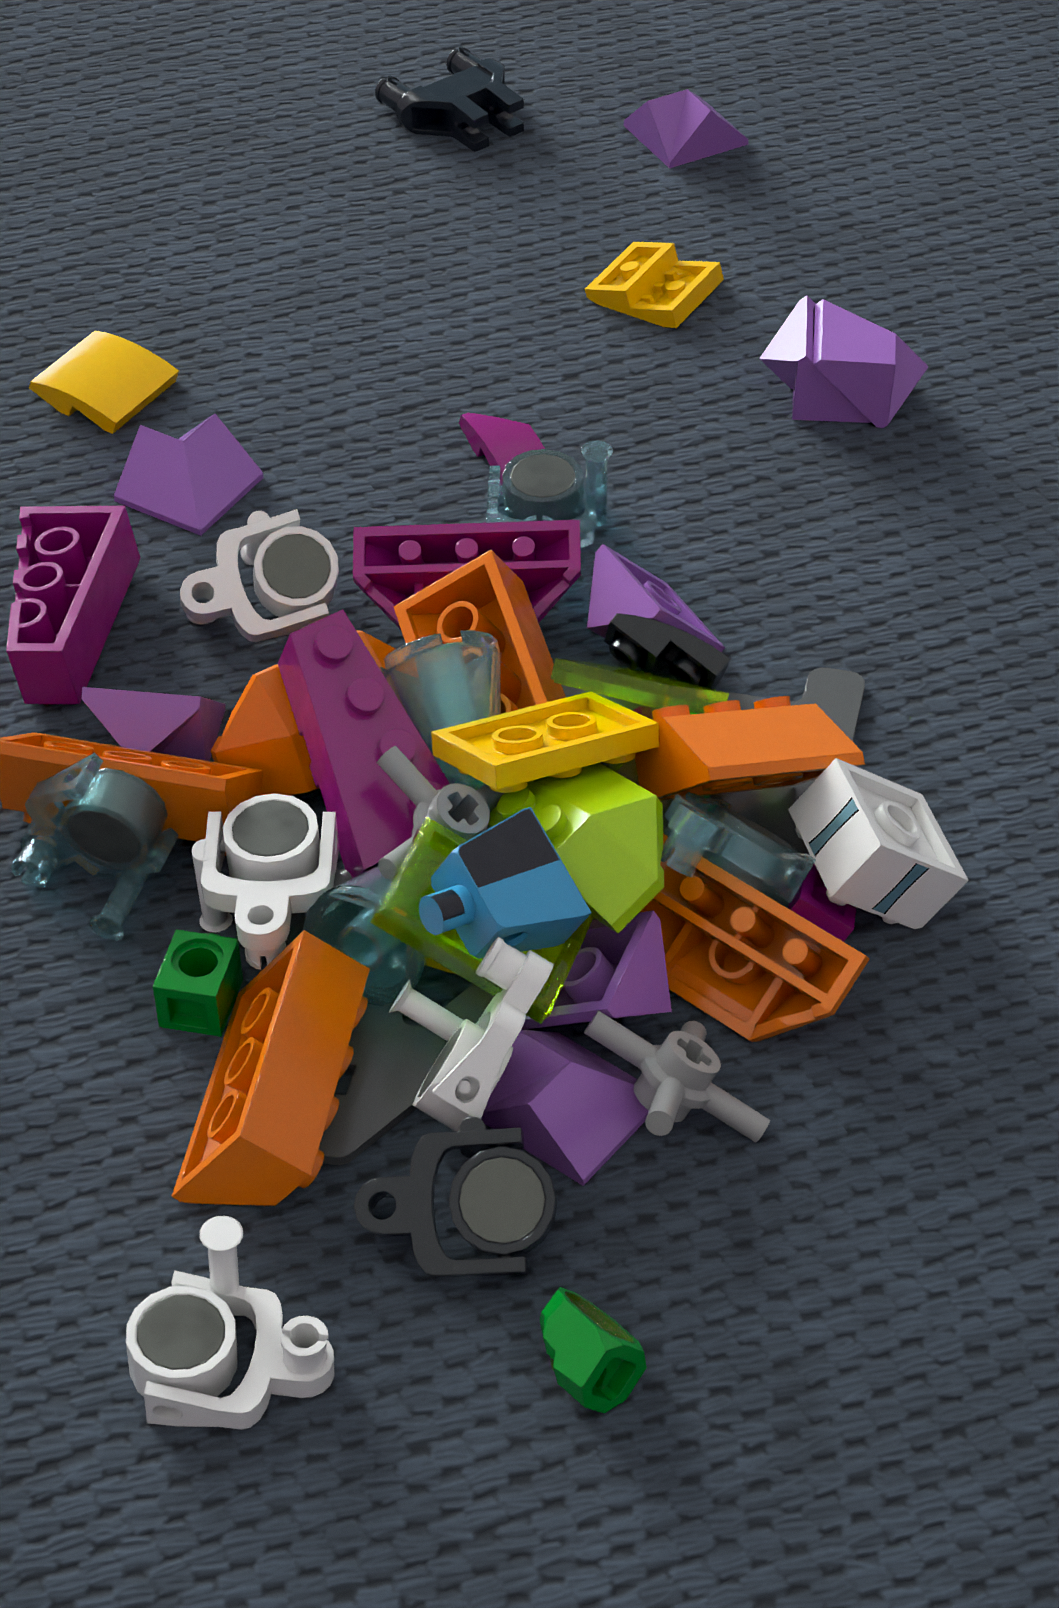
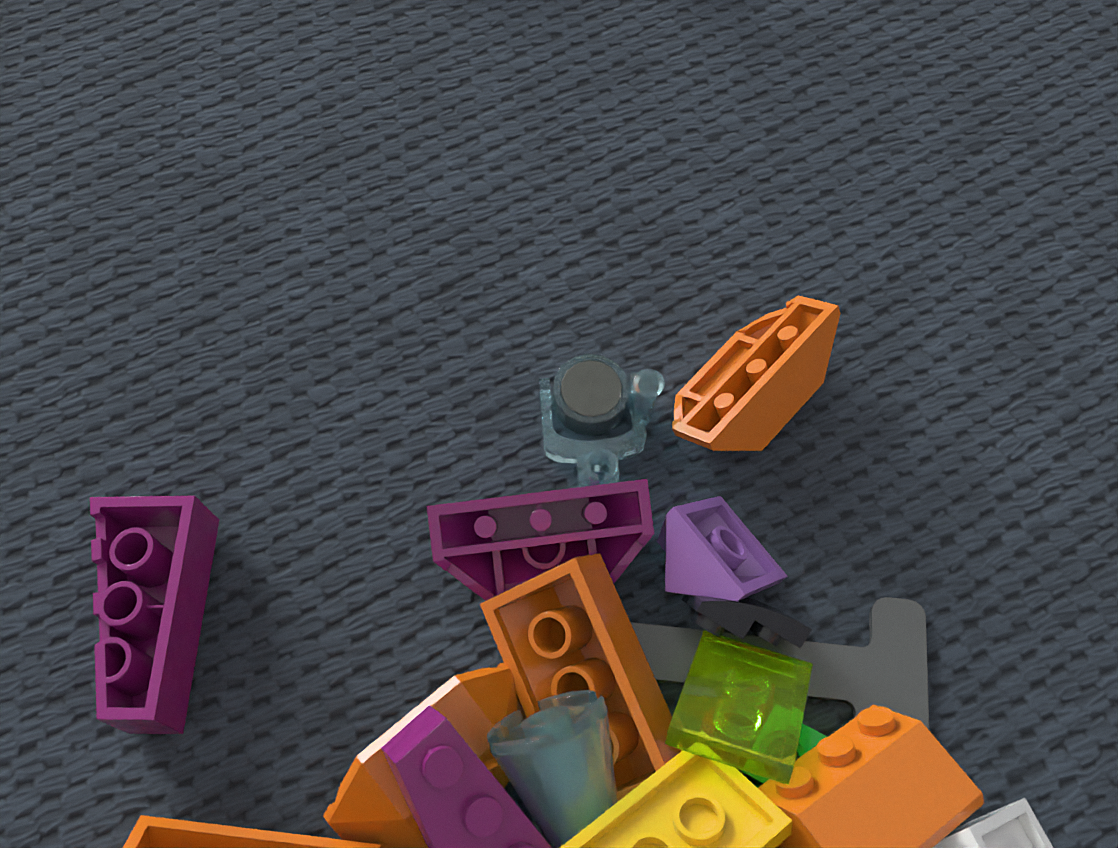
camera: 10 degrees left, 20 degrees up
(104, 380) = (155, 284): yellow slope -> none
(158, 720) = (257, 762): medium lavender slope -> none
(189, 477) = (250, 407): medium lavender slope -> none
(291, 577) = (370, 549): white piece -> none
(498, 438) = (546, 334): magenta slope -> none
(654, 285) = (647, 114): yellow slope -> none
(729, 485) = (758, 378): none -> orange wedge
(792, 361) = (819, 214): medium lavender slope -> none
(864, 362) = (860, 213): medium lavender slope -> none

